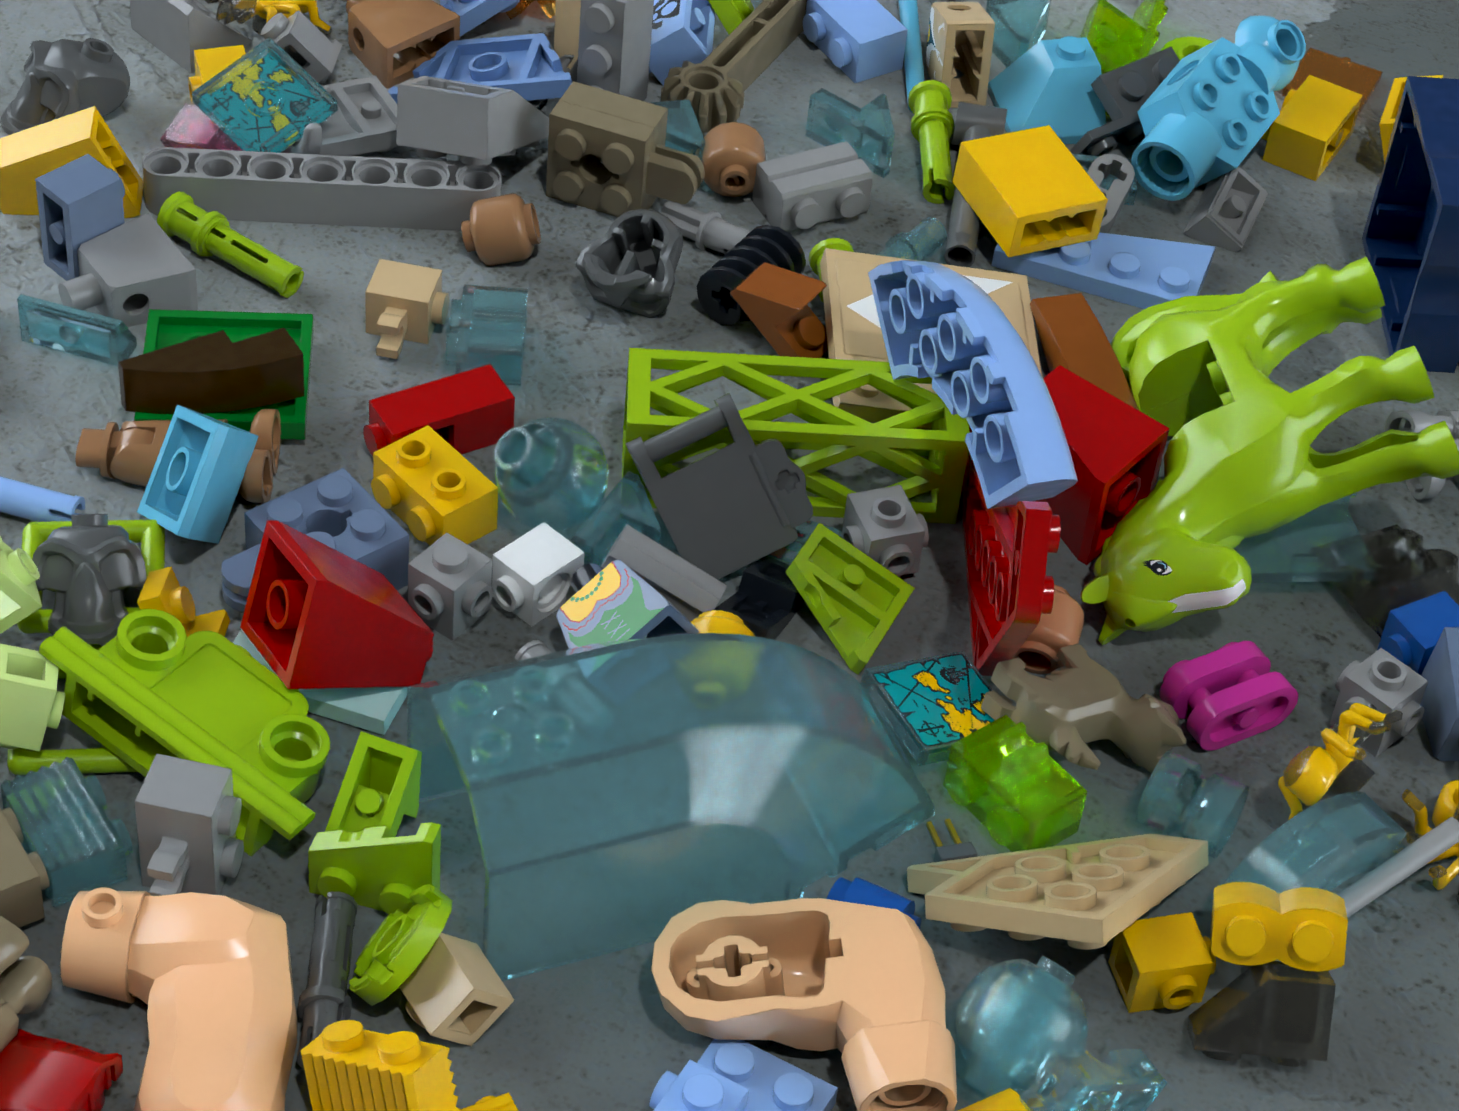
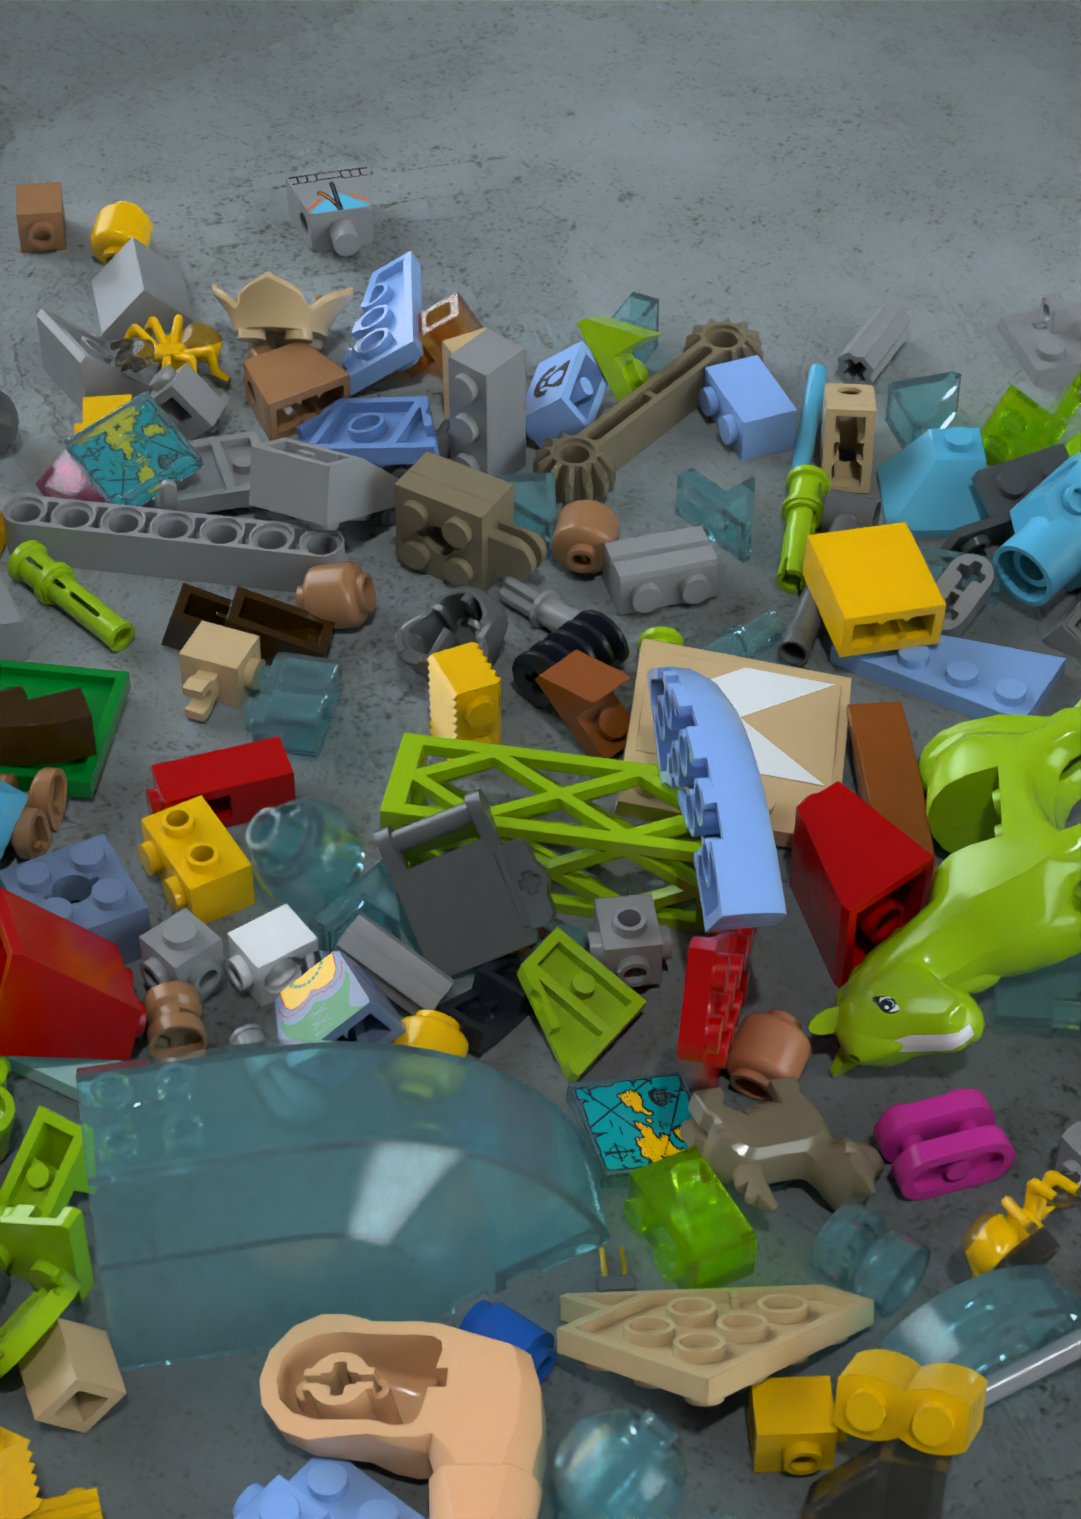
camera: 15 degrees right, 0 degrees up
(457, 641) = (175, 1014): none -> medium nougat wheel
(458, 259) = (275, 622): none -> dark brown slope
(666, 311) = (464, 695): none -> yellow brick

